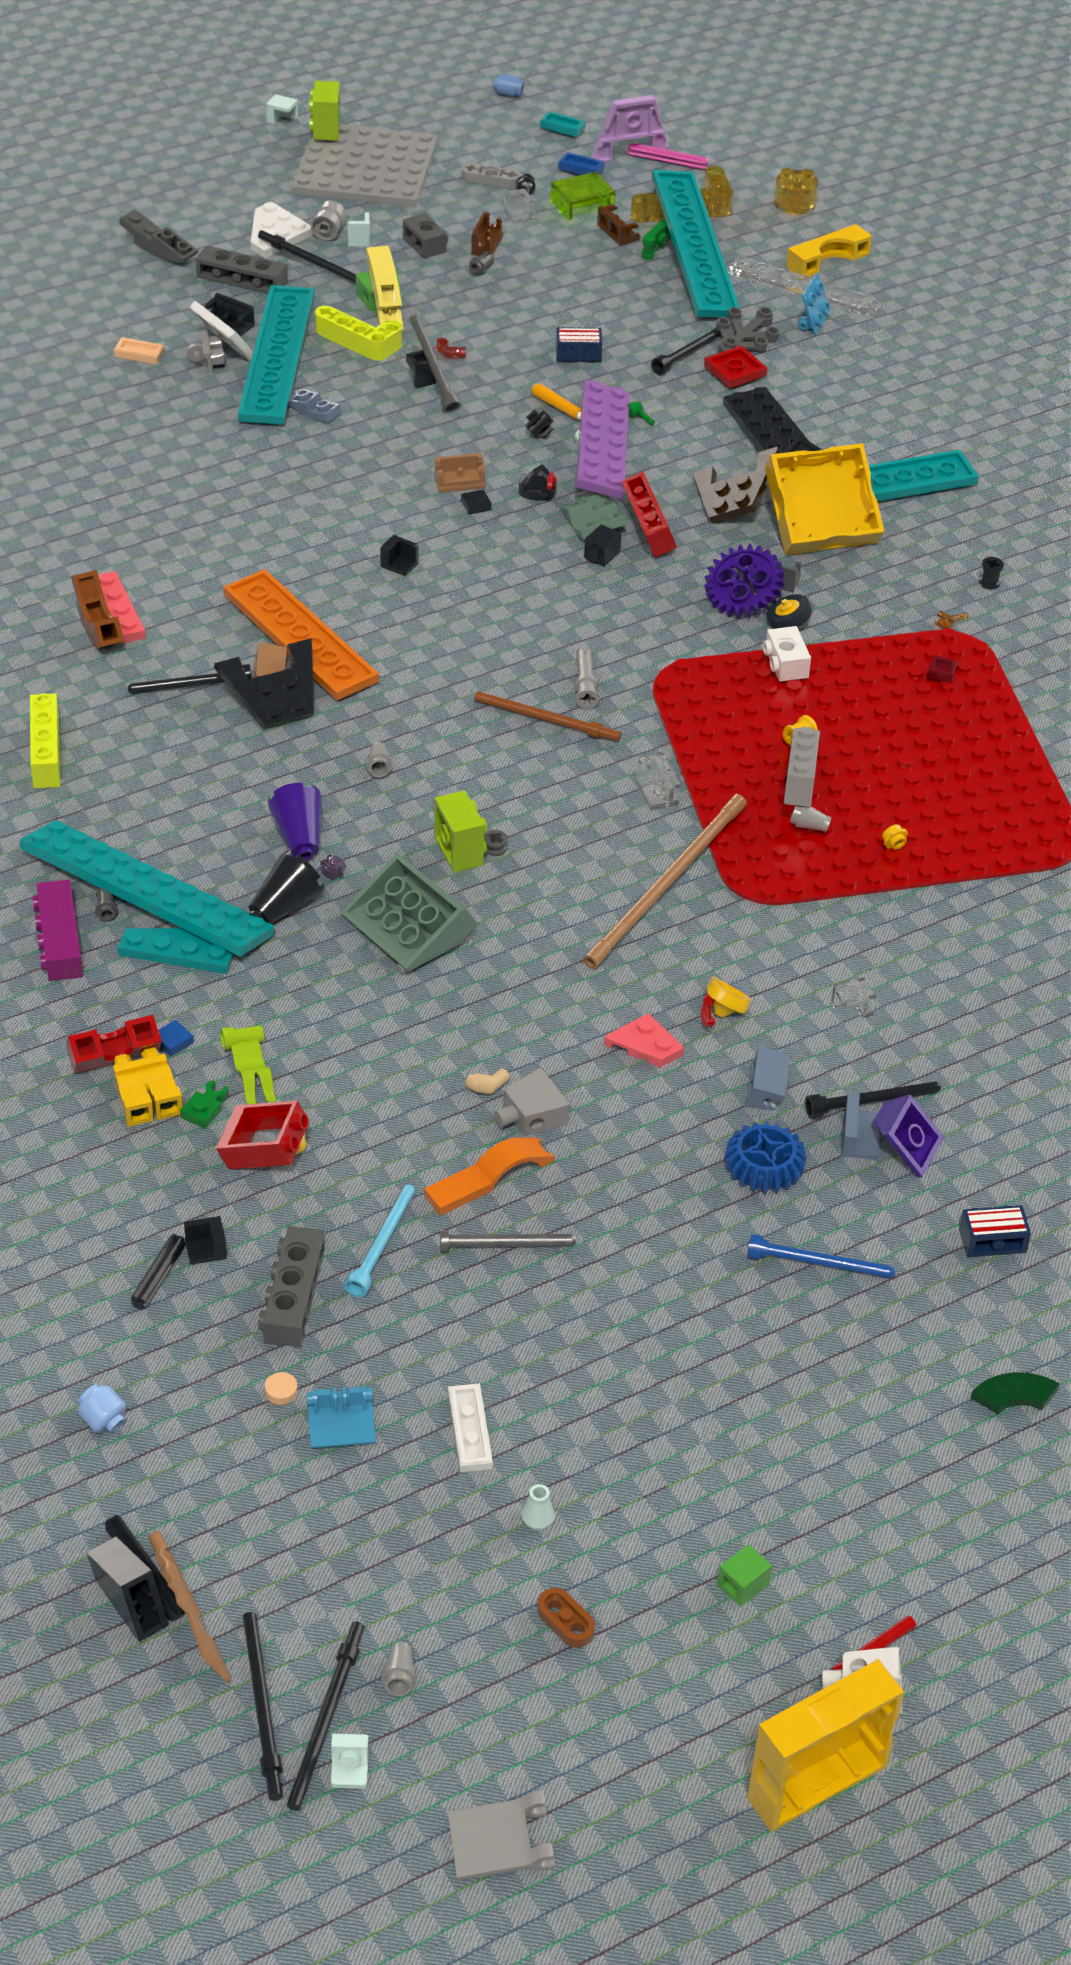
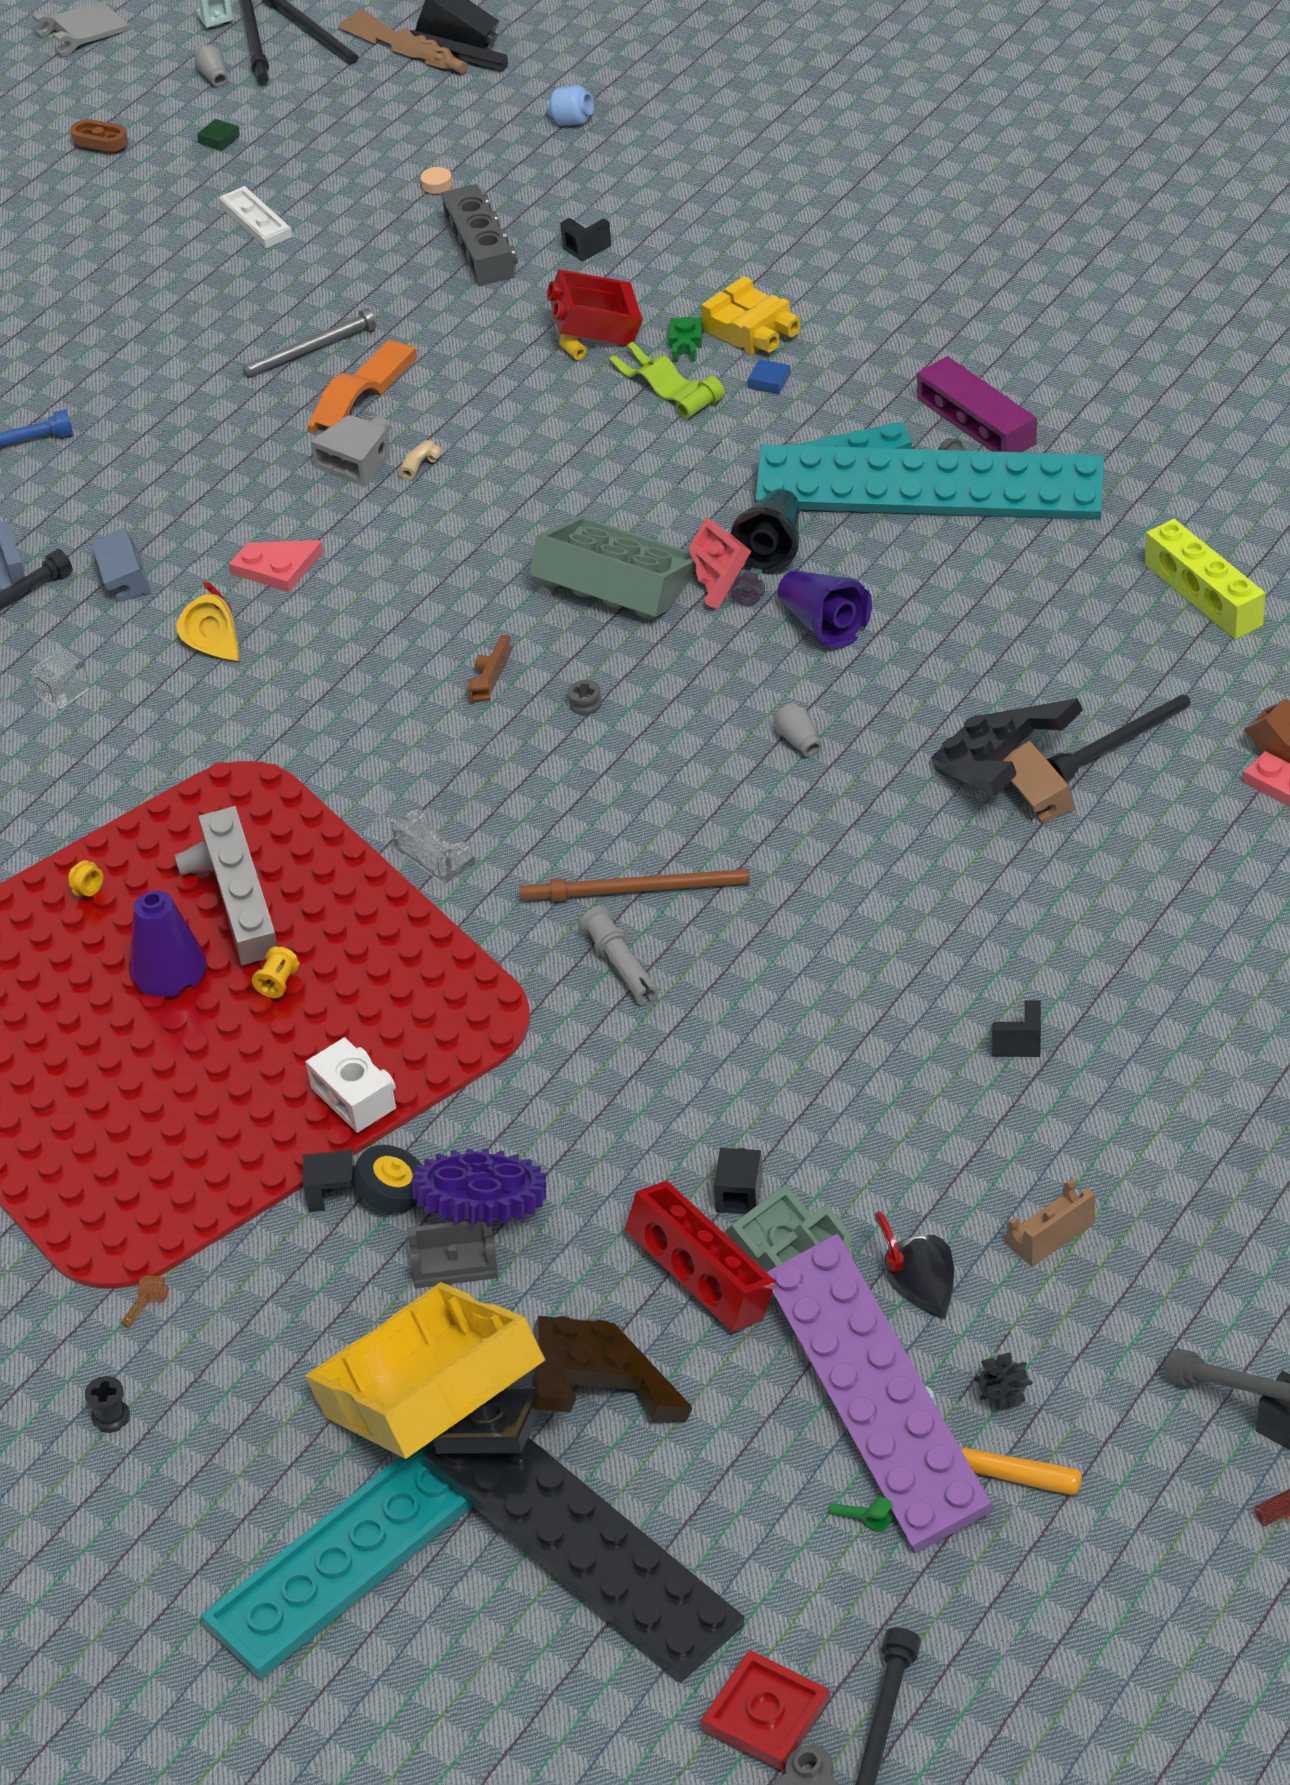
camera: 160 degrees right, 0 degrees up
(95, 1050) = (828, 314): red arch -> none
(157, 1271) = (612, 207): black axle -> none
(290, 621) = (1047, 854): orange plate -> none
(341, 877) = (717, 560): none -> coral wing
(341, 1417) = (371, 180): dark azure hinge -> none
(359, 1280) = (424, 264): medium azure piece -> none
(445, 1564) = (218, 134): none -> dark green tile
(459, 830) = (623, 655): lime brick -> none
(476, 501) = (991, 1193): black tile -> none
(538, 1509) = (158, 176): light aqua cone -> none
(544, 886) = (492, 667): none -> dark orange piece
(578, 344) = (1075, 1616): dark blue brick -> none
(604, 947) = (315, 824): medium nougat piece -> none
(765, 1157) = (88, 494): blue gear -> none
(822, 625) = (324, 1172): none -> black panel
(865, 758) = (163, 947): none -> dark purple cone
(942, 669) = (119, 1177): dark red tile -> none

